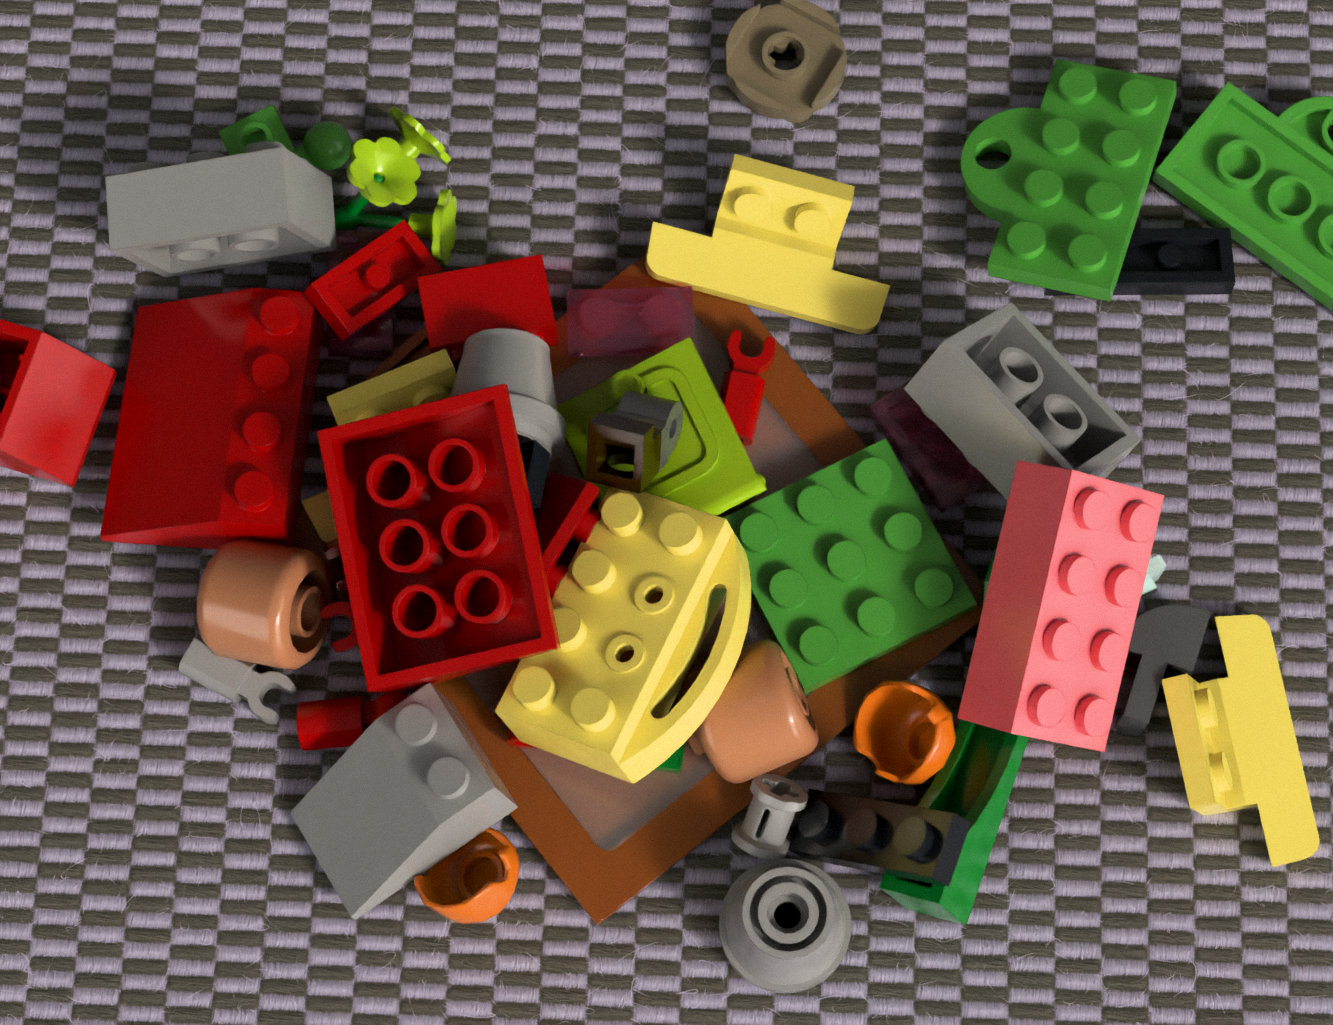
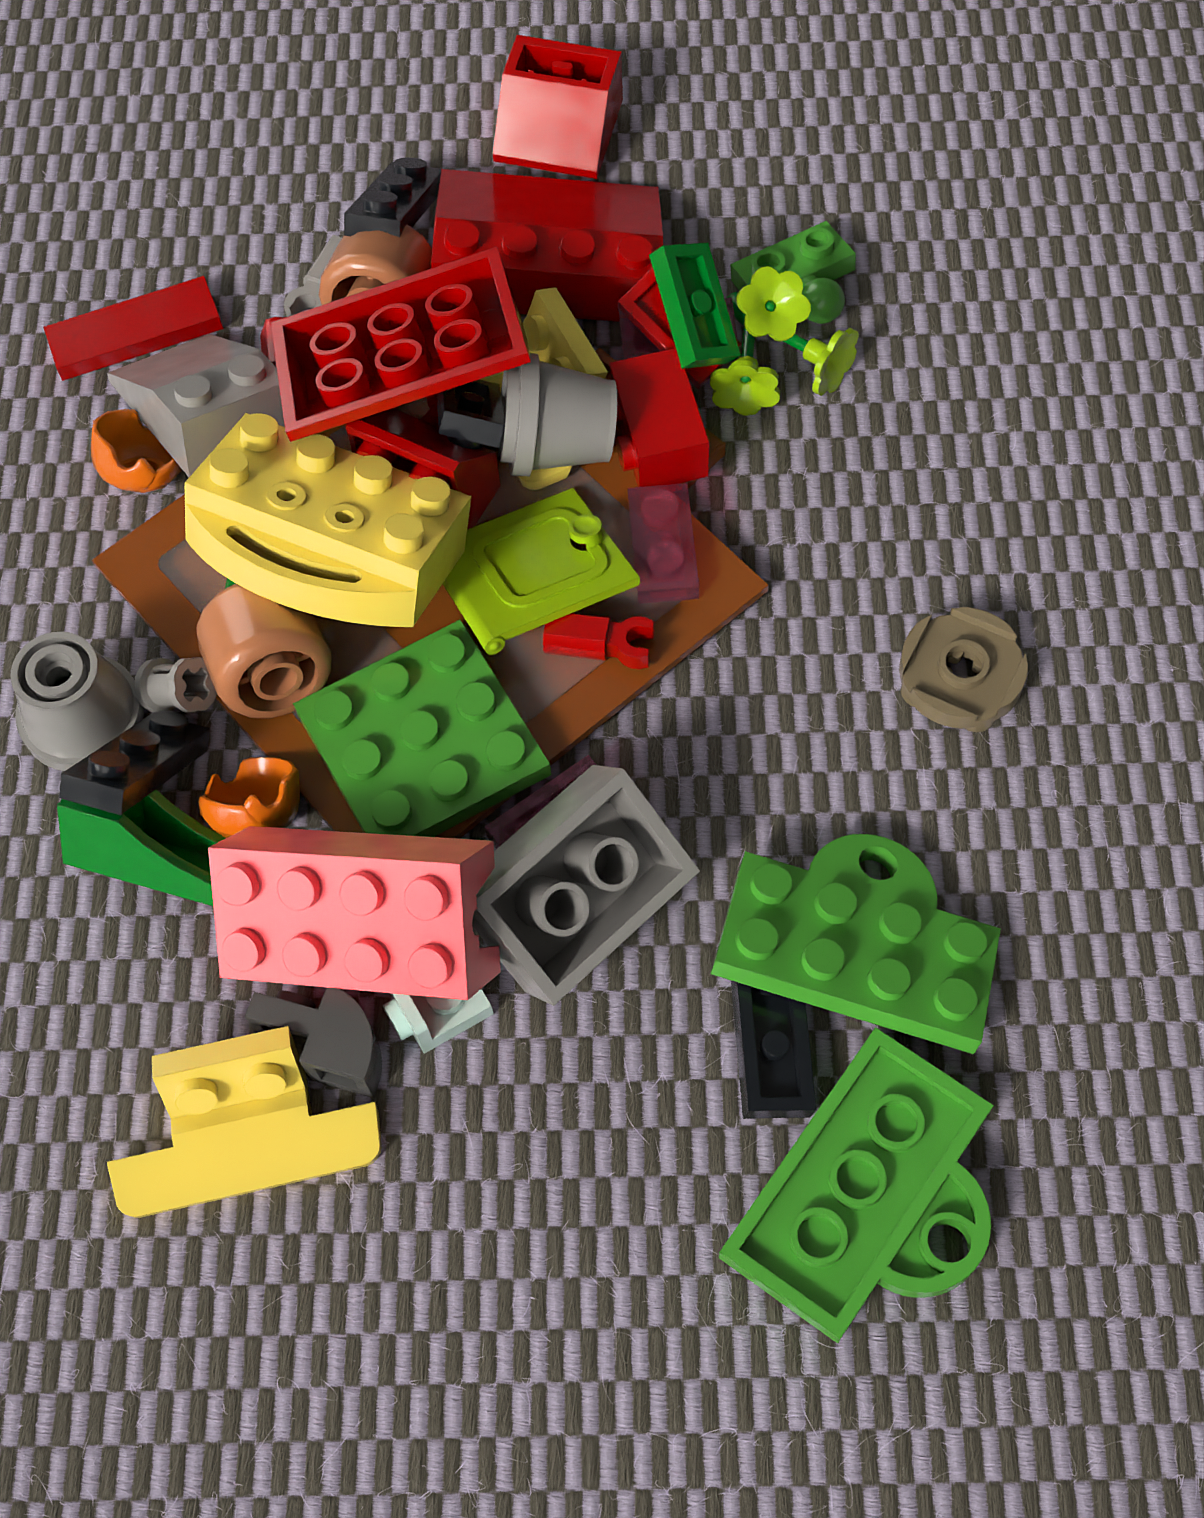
camera: 90 degrees right, 10 degrees down
(152, 583) = (394, 198): none -> black plate
(220, 210) = (731, 191): light grey brick -> none
(272, 901) = (132, 328): none -> red tile
(378, 250) = (694, 305): none -> green plate
(638, 434) = (515, 516): dark brown leg -> none
(772, 249) = (747, 662): light yellow plate -> none

